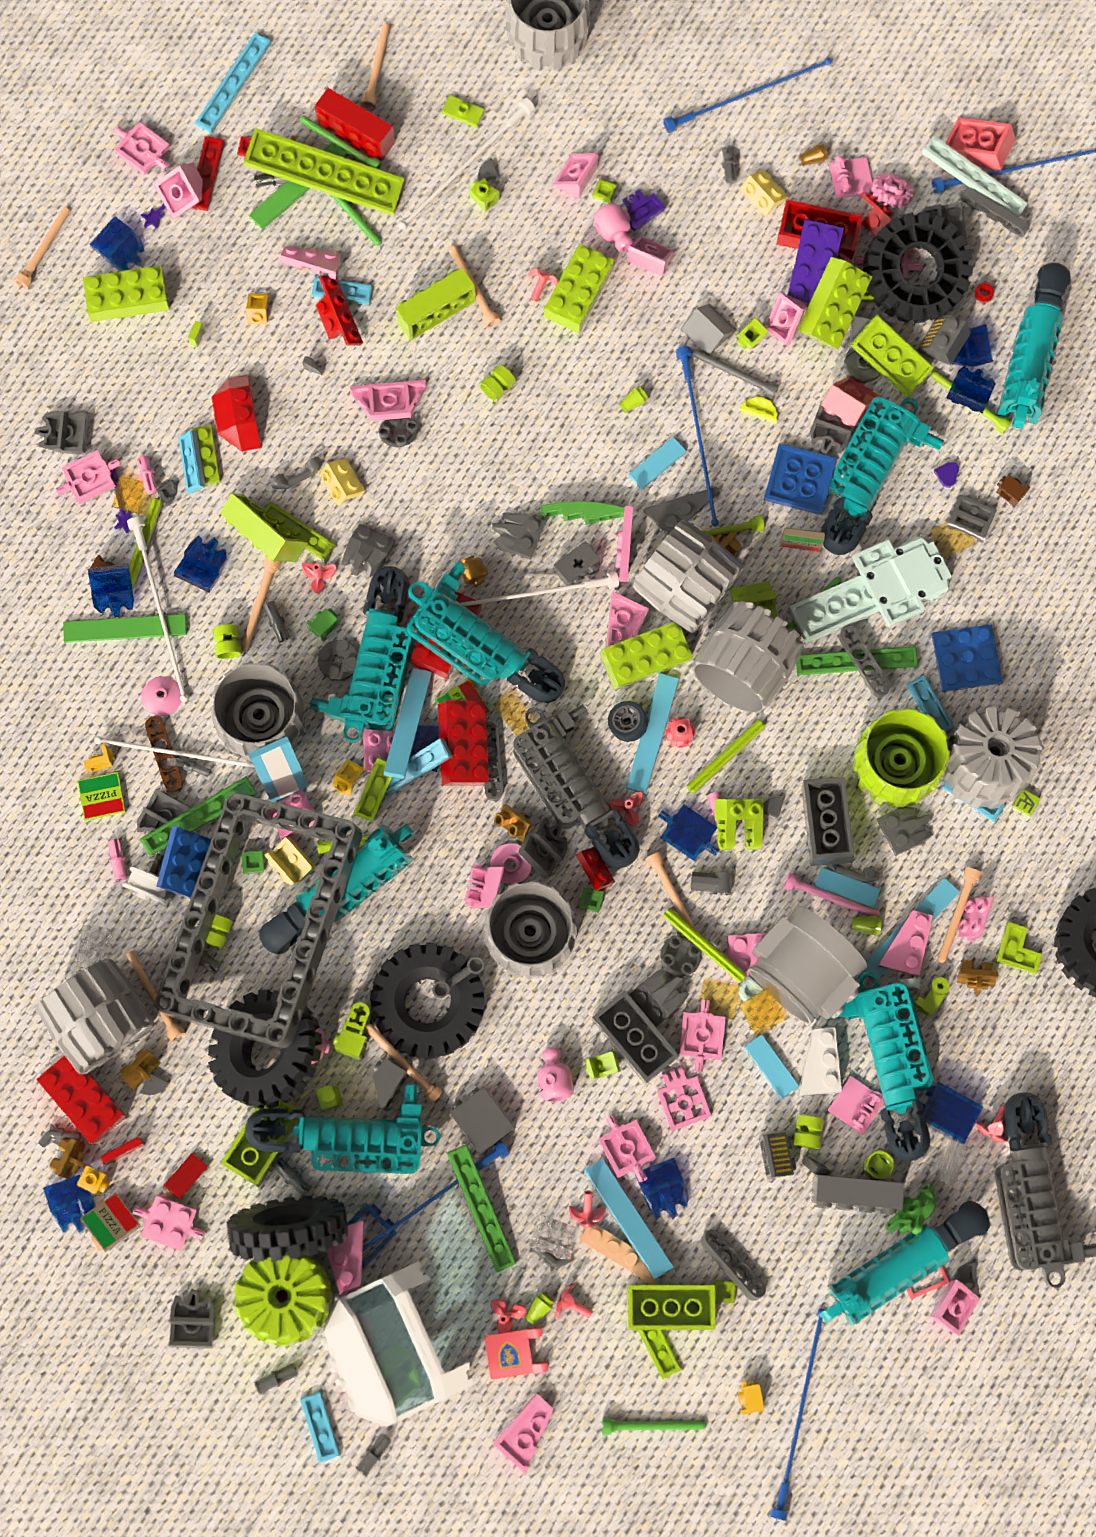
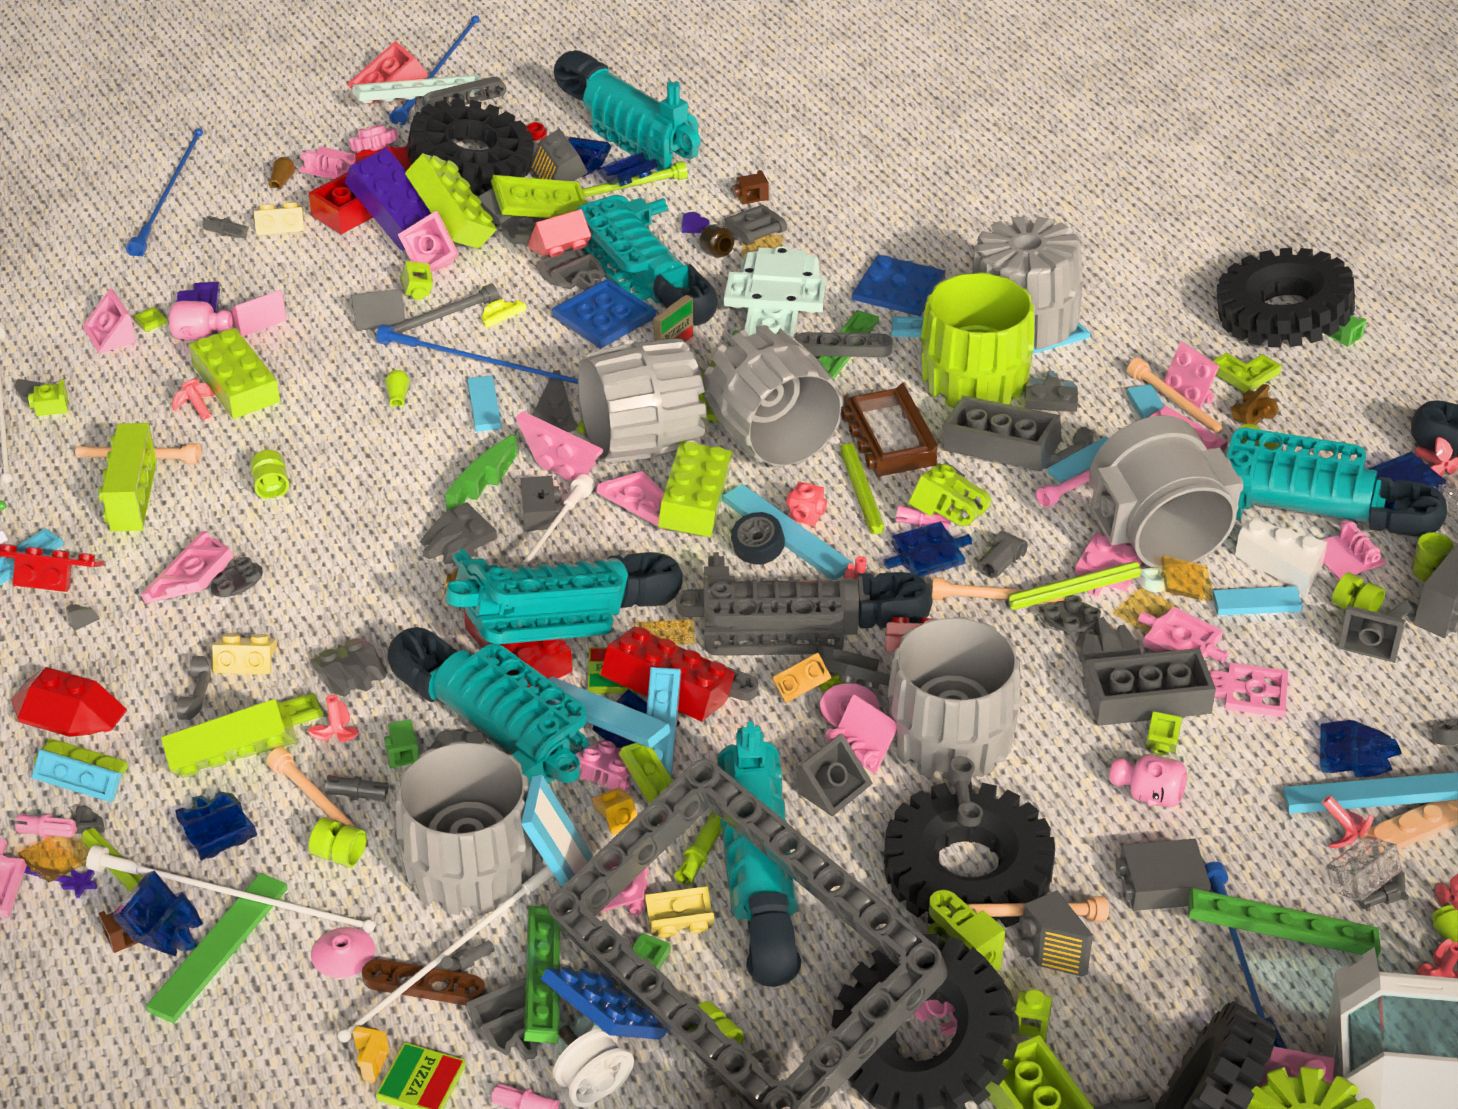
camera: 55 degrees left, 35 degrees down
(348, 1137) = (1115, 999): teal piece -> none
(444, 889) = (832, 776): none -> dark grey slope
(626, 1148) = (1285, 756): bright pink plate -> none
(790, 742) = (890, 431): none -> reddish brown window
(930, 504) = (716, 240): none -> dark brown head
(1026, 803) = (1090, 307): lime tile -> none

